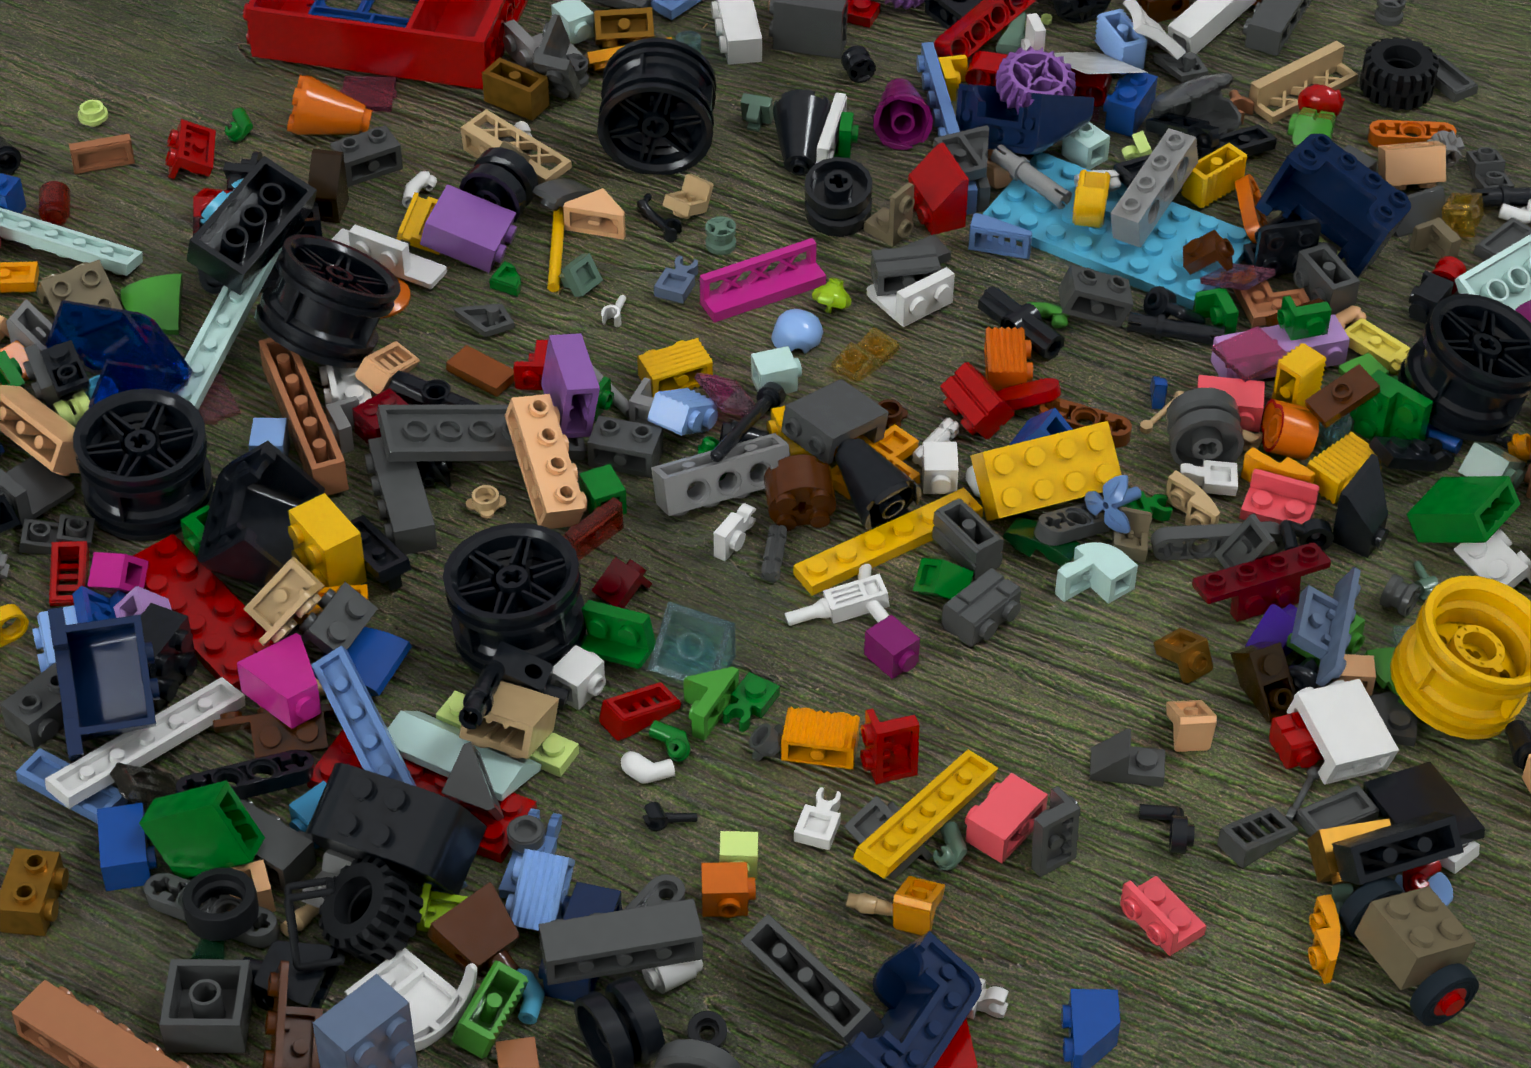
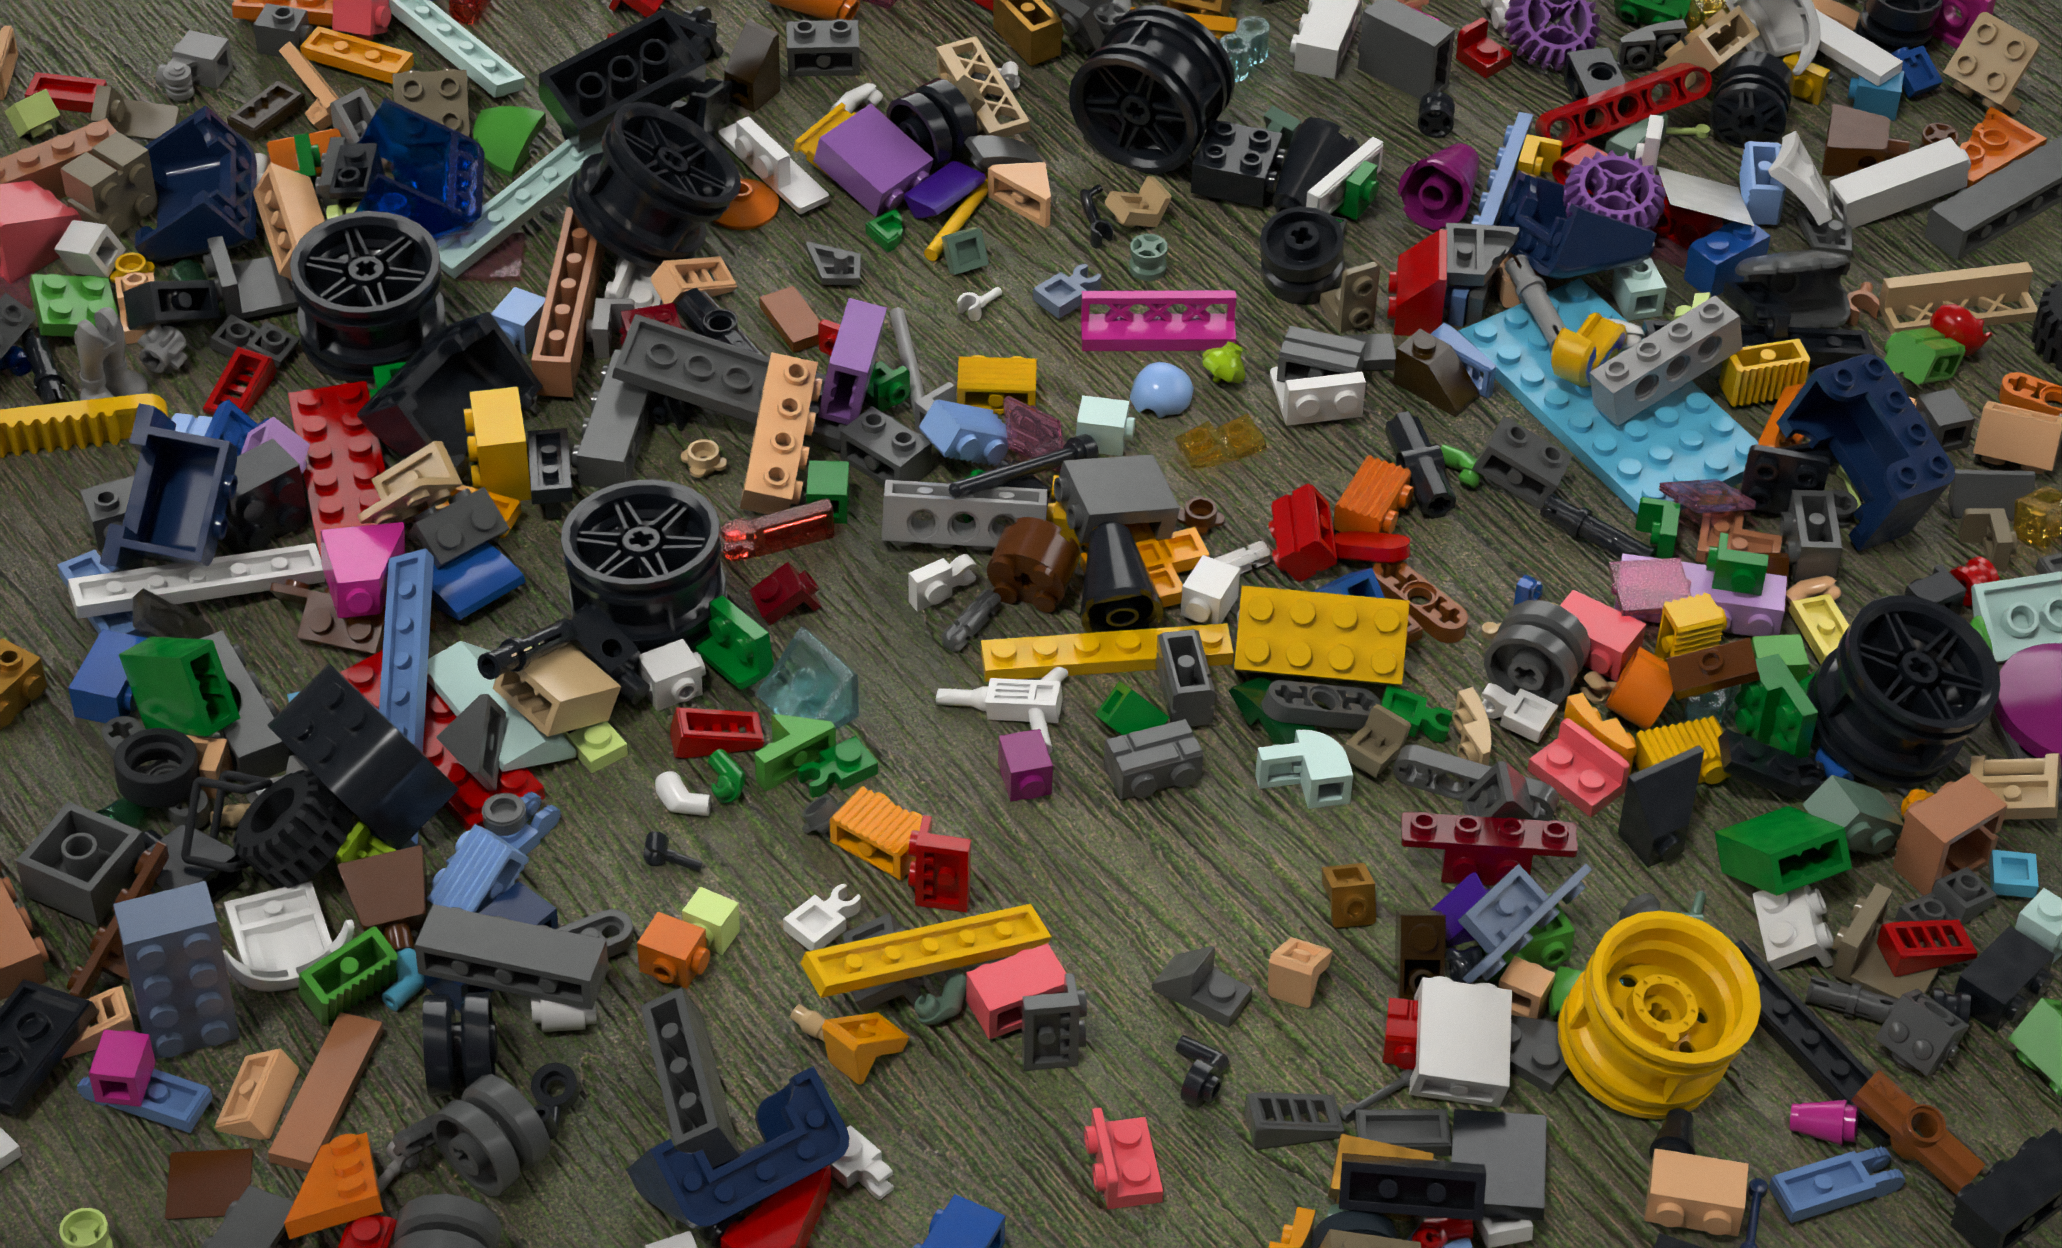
camera: 25 degrees right, 0 degrees up
(117, 572) = (278, 399): dark pink brick -> none
(286, 771) = (260, 650): black beam -> none
(533, 234) = (943, 189): none -> dark purple slope
(744, 145) = (1237, 163): none -> black brick
(986, 253) = (1434, 373): none -> dark brown slope
(1115, 495) = (1369, 691): medium blue plant -> none
(1163, 301) = (1599, 496): black plate -> none
(1207, 250) = (1686, 452): reddish brown bracket -> none
(1311, 531) = (1592, 815): black plate -> none

